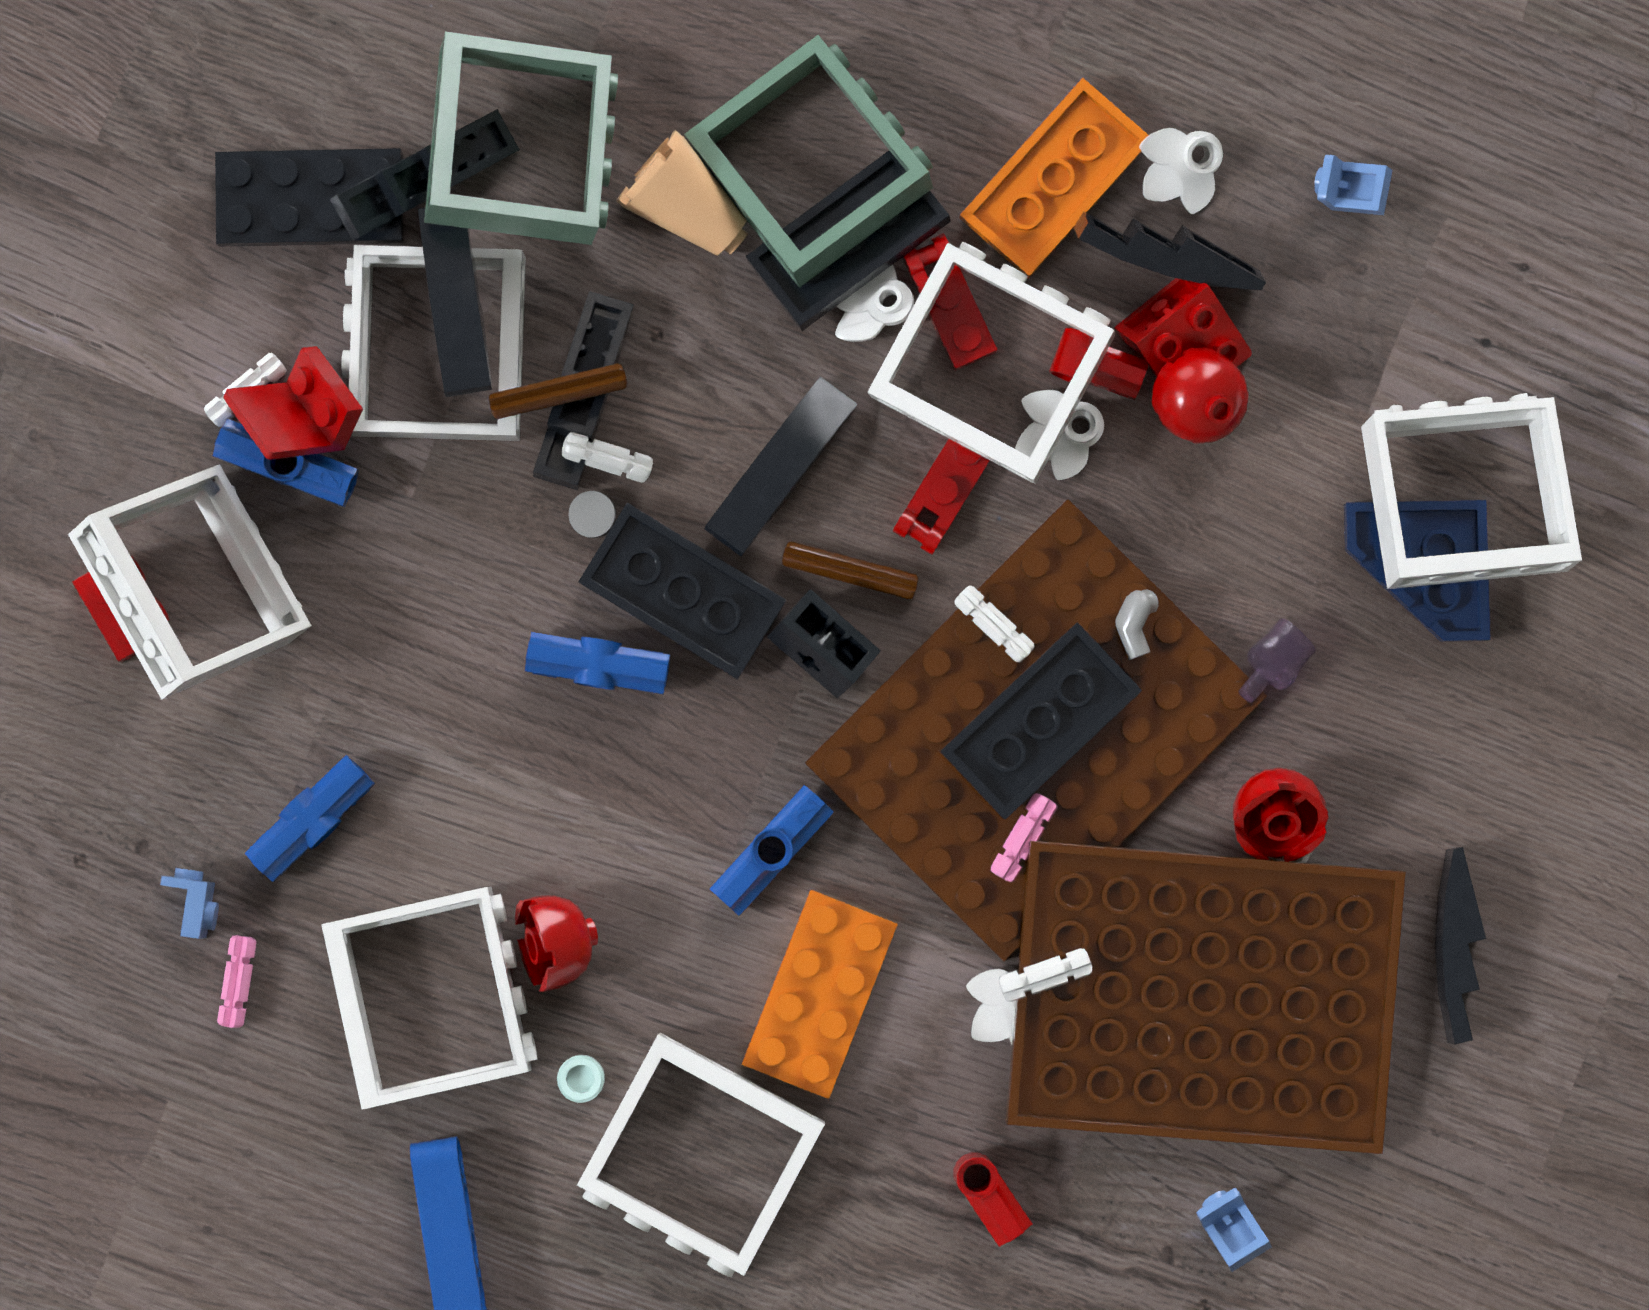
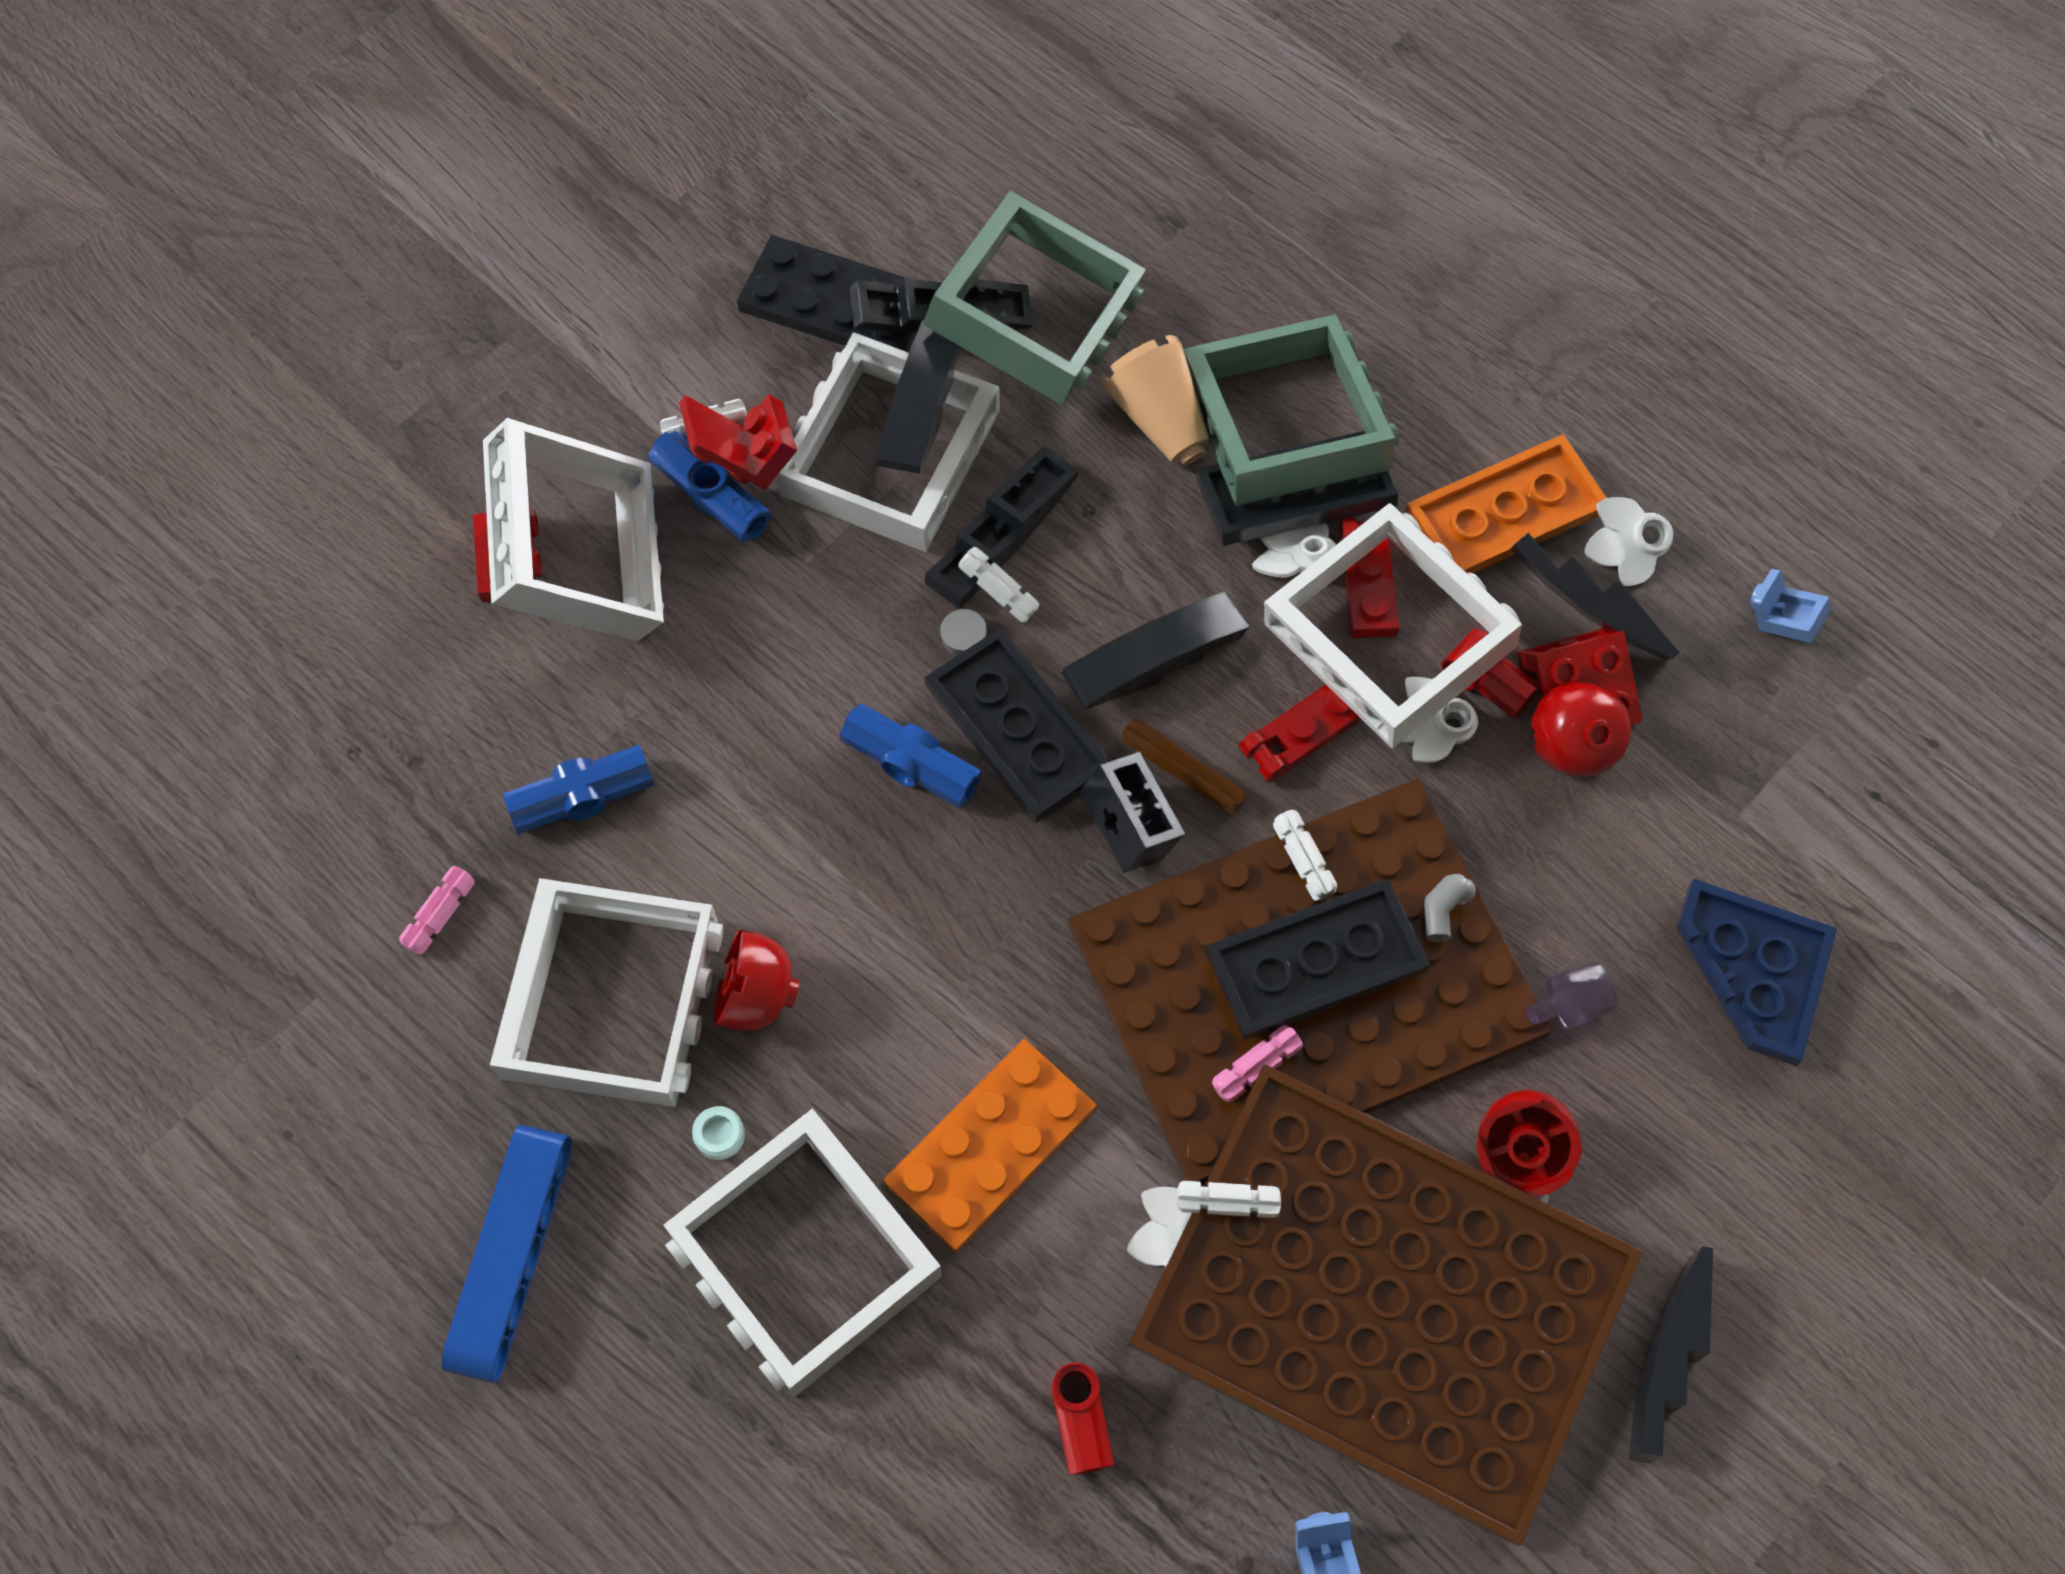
camera: 20 degrees right, 20 degrees down
(199, 910) = (437, 824): medium blue bracket -> none
(557, 391) = (978, 503): reddish brown axle -> none
(792, 826) = (973, 999): blue piece -> none
(1475, 414) = (1808, 972): white window -> none

